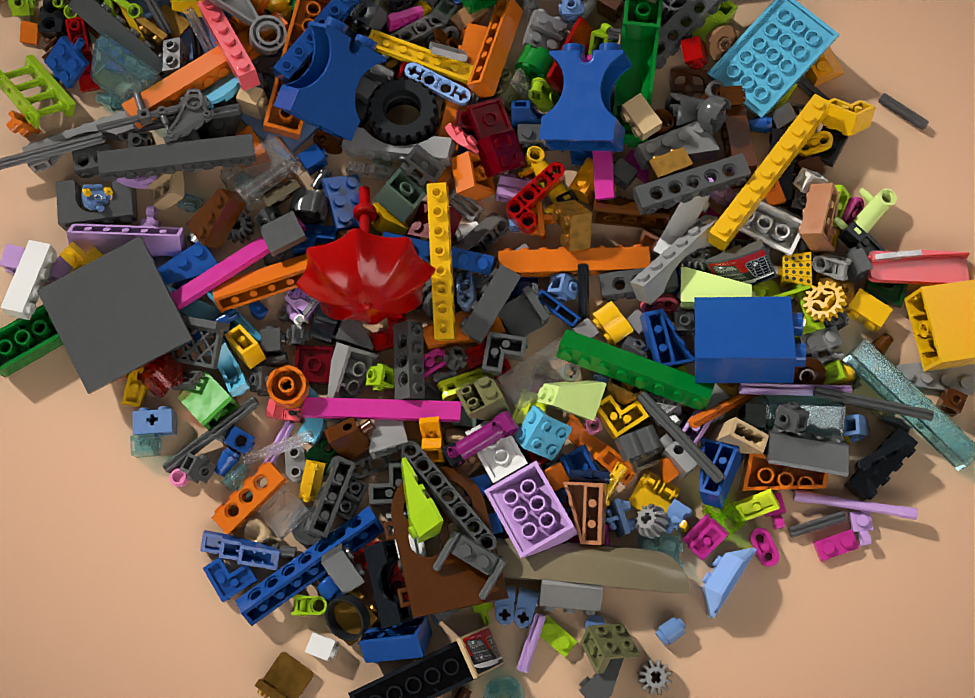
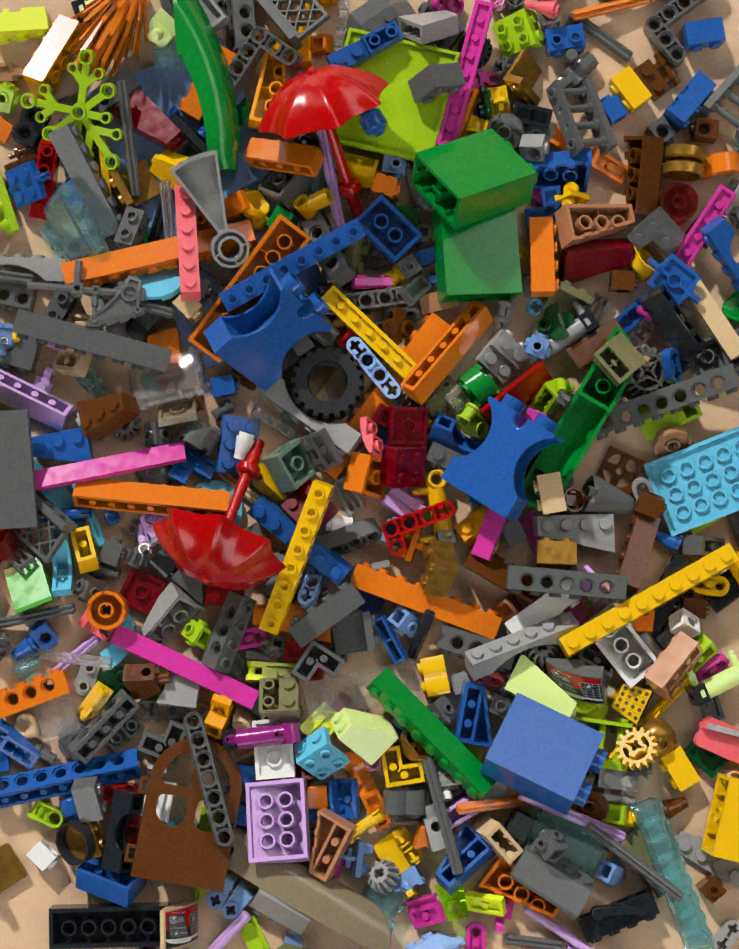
camera: 20 degrees right, 10 degrees up
(282, 233) = (162, 459): dark grey tile -> none
(351, 194) = (243, 444): none -> white cone
(422, 512) = (177, 785): lime wedge -> none
(447, 51) = (397, 340): light grey tile -> none
(476, 556) = (207, 845): dark grey plate -> none
(574, 368) = (374, 712): light grey bush -> none
(586, 328) = (406, 672): light grey tile -> none
(589, 476) = (345, 811): dark blue pin -> none
(694, 52) = (637, 443): red brick -> none
(712, 113) = (622, 517): dark grey cylinder -> none
(832, 265) = (663, 715): light grey piece -> none
(859, 265) = (685, 722): dark grey brick -> none

